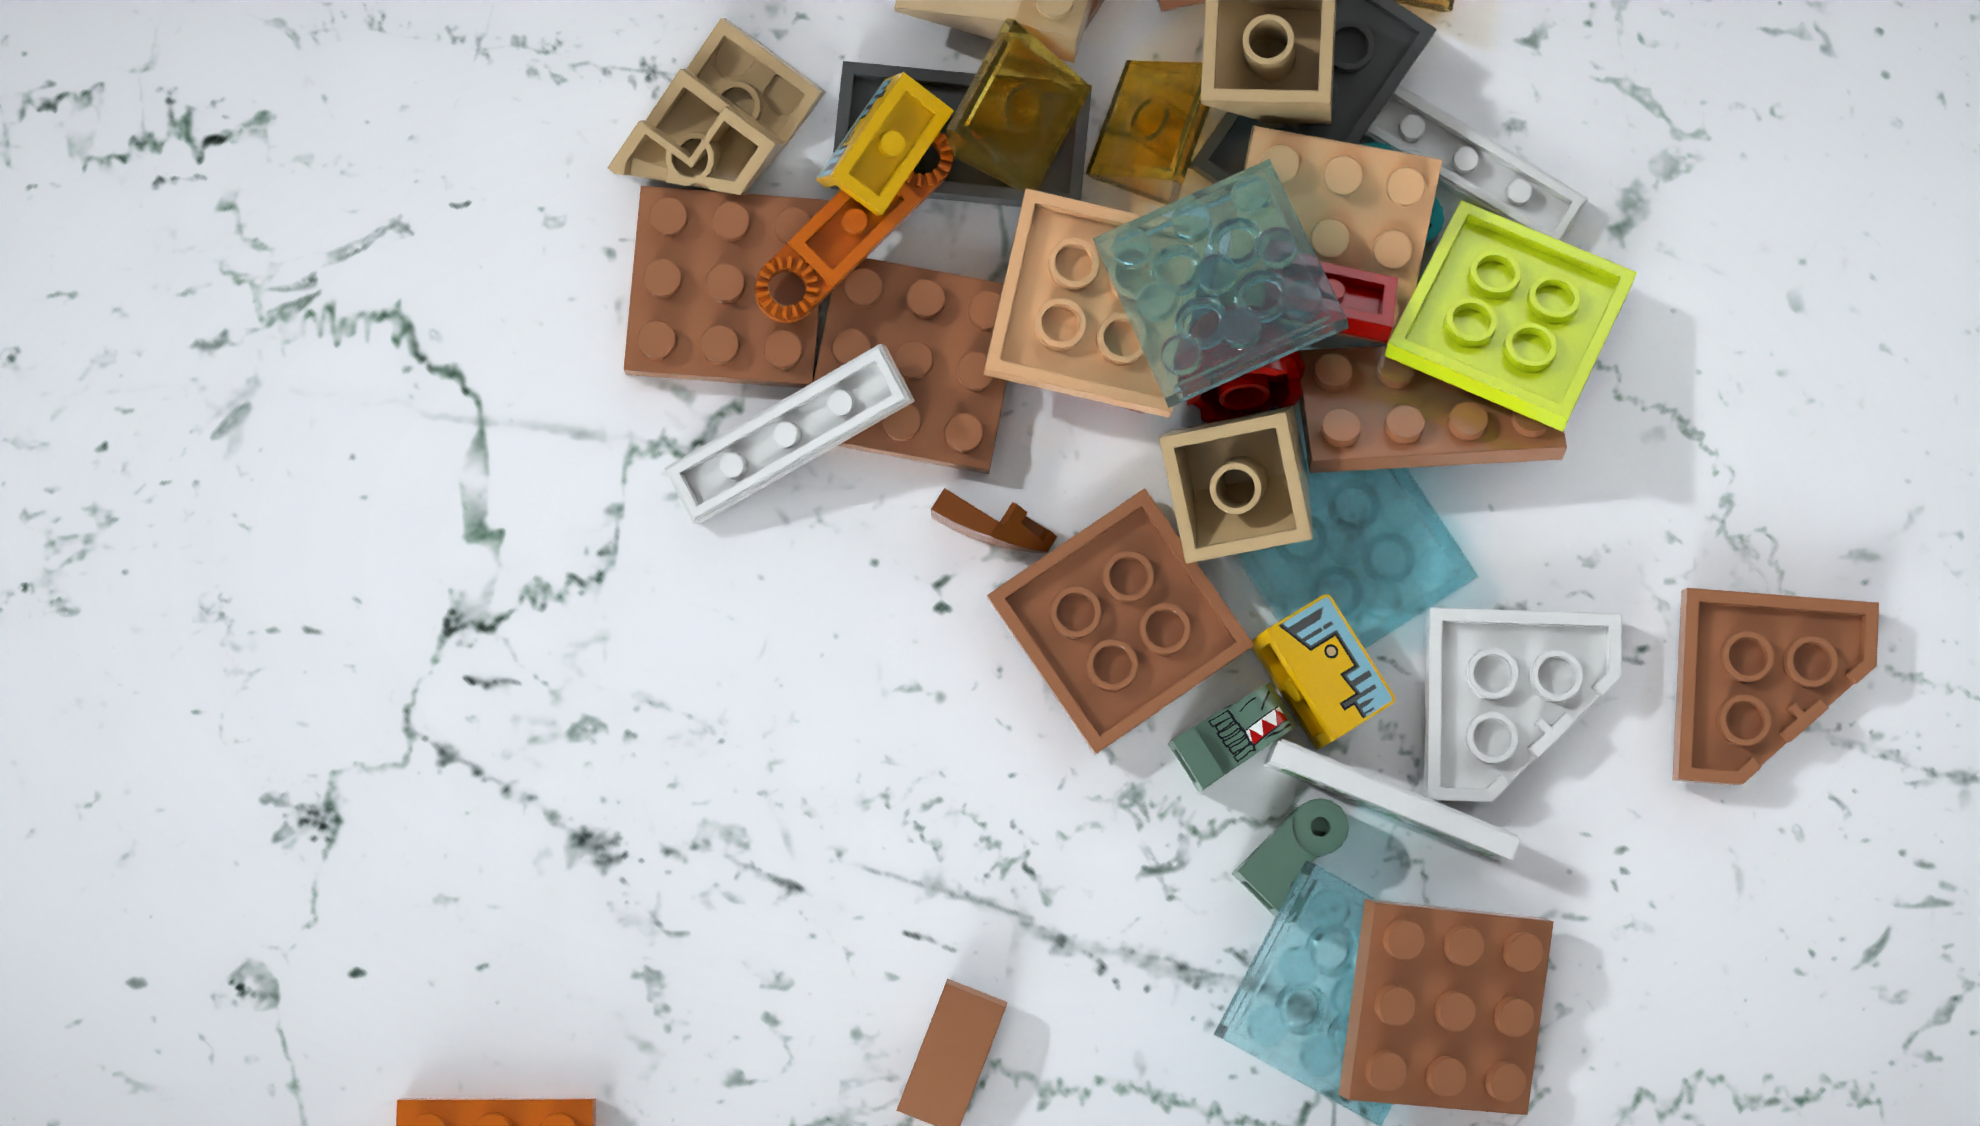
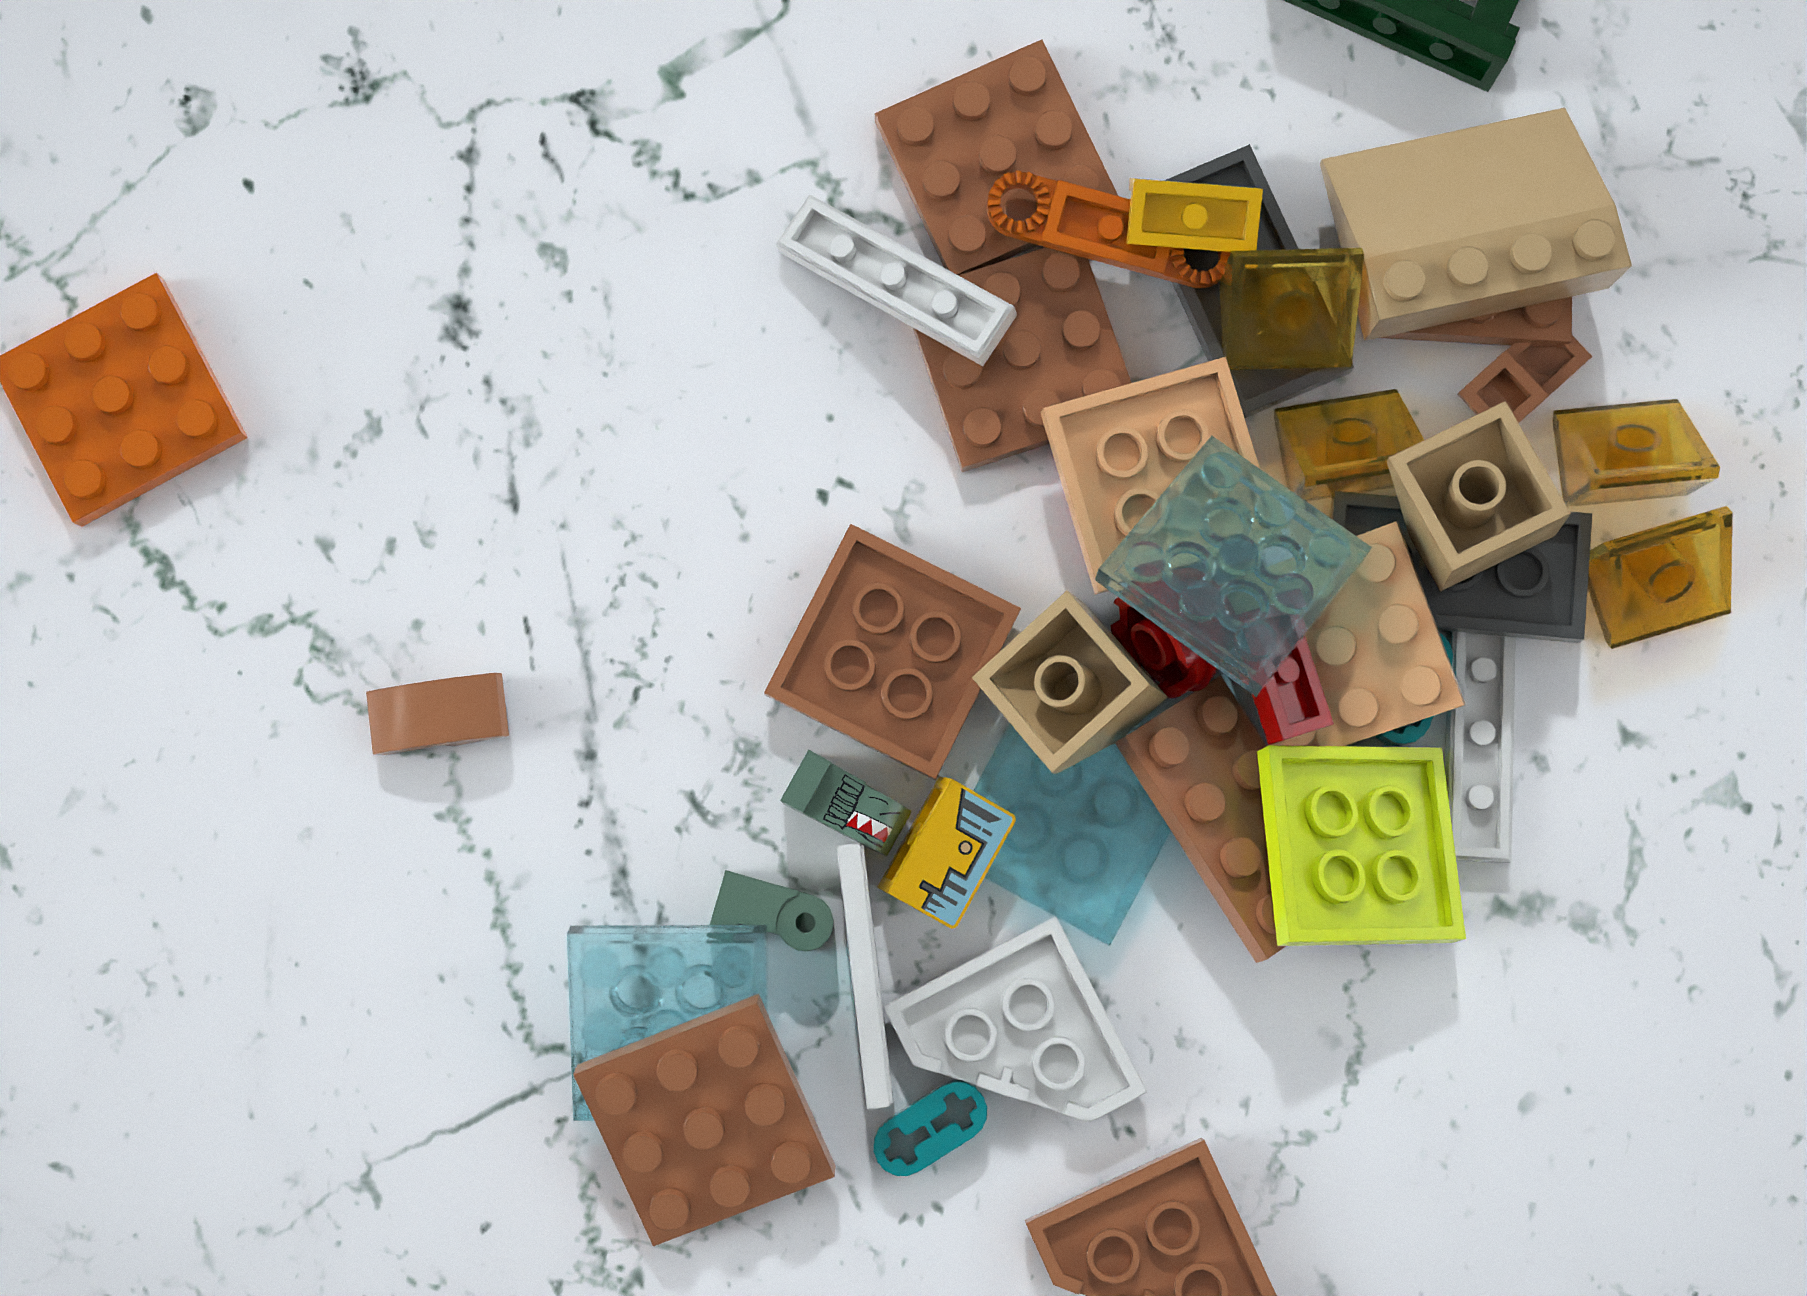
camera: 65 degrees right, 0 degrees up
(720, 117) = (1142, 73): tan slope -> none
(1012, 532) = (921, 515): dark orange slope -> none
(1567, 818) = (939, 1141): none -> teal beam

